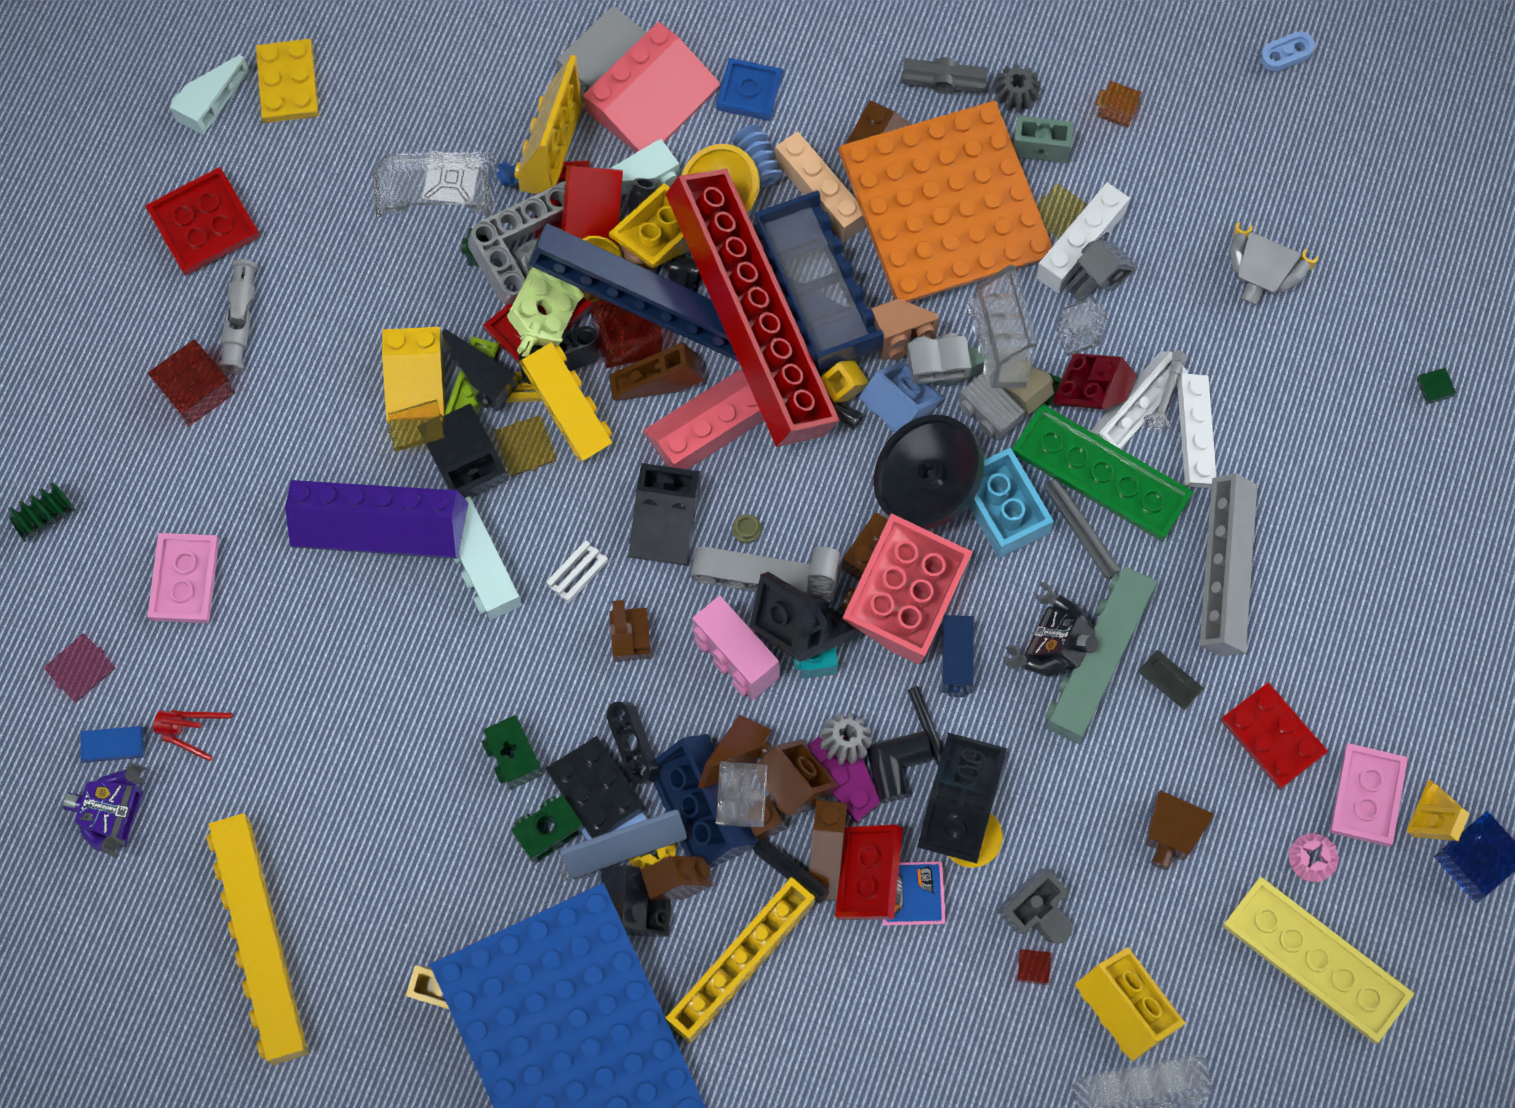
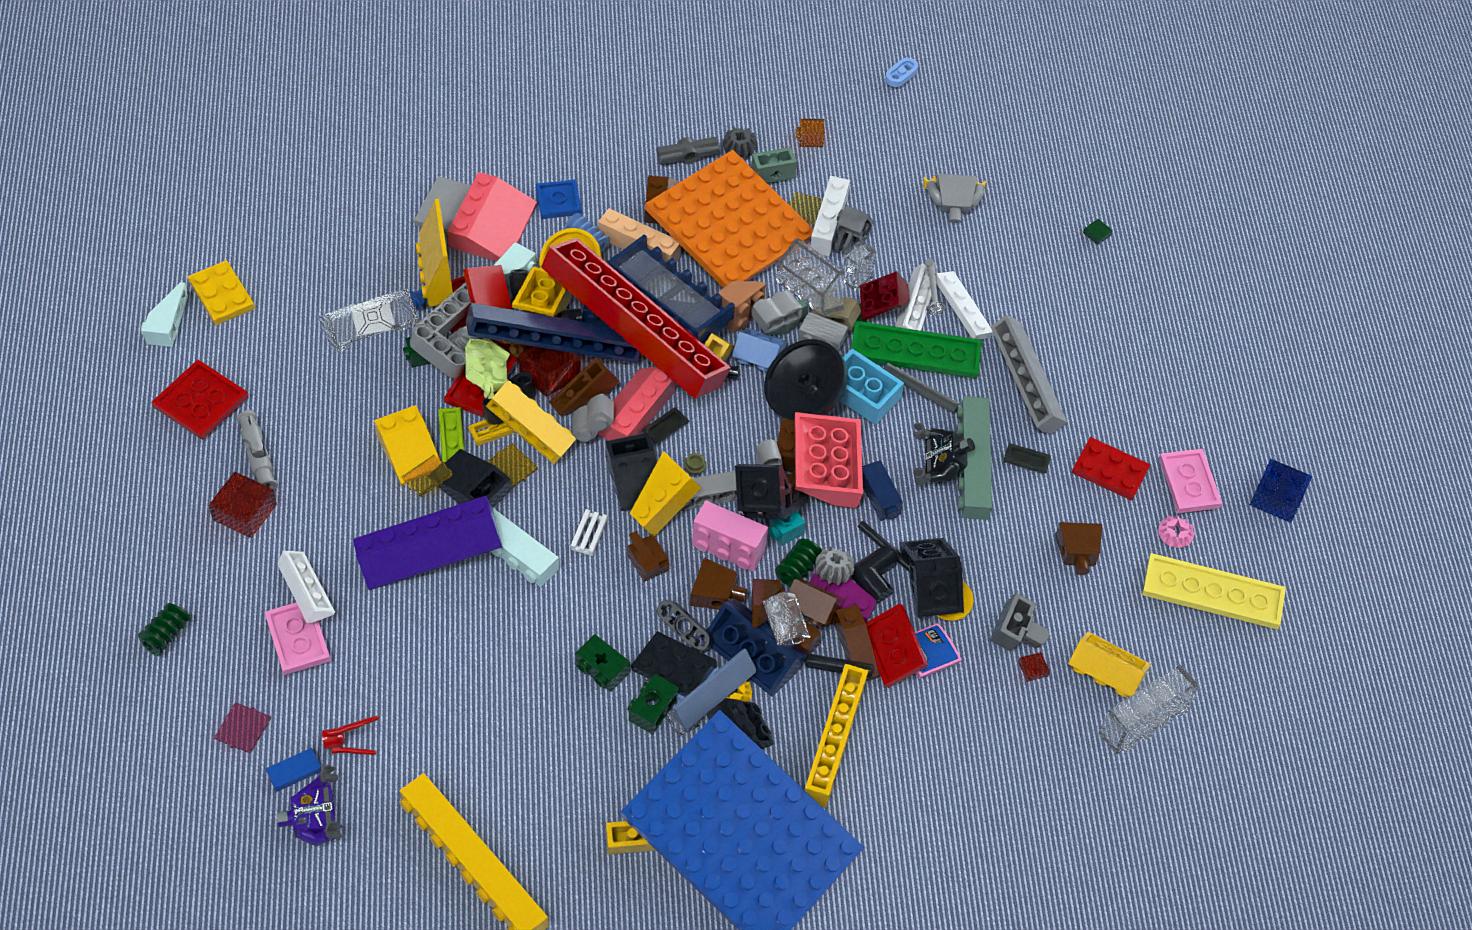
camera: 30 degrees left, 15 degrees down
(217, 518) = (305, 586): none -> white slope
(486, 378) = (459, 426): black slope -> none
(643, 423) = (592, 418): none -> light grey brick
(677, 877) = (765, 695): reddish brown brick -> none
(680, 561) = (663, 495): none -> yellow wedge
(692, 706) = (715, 586): none -> reddish brown torso
(734, 461) = (665, 425): none -> pearl dark grey tile
(807, 712) = (798, 561): none -> dark green piece
(1437, 815) = (1241, 474): yellow wing -> none

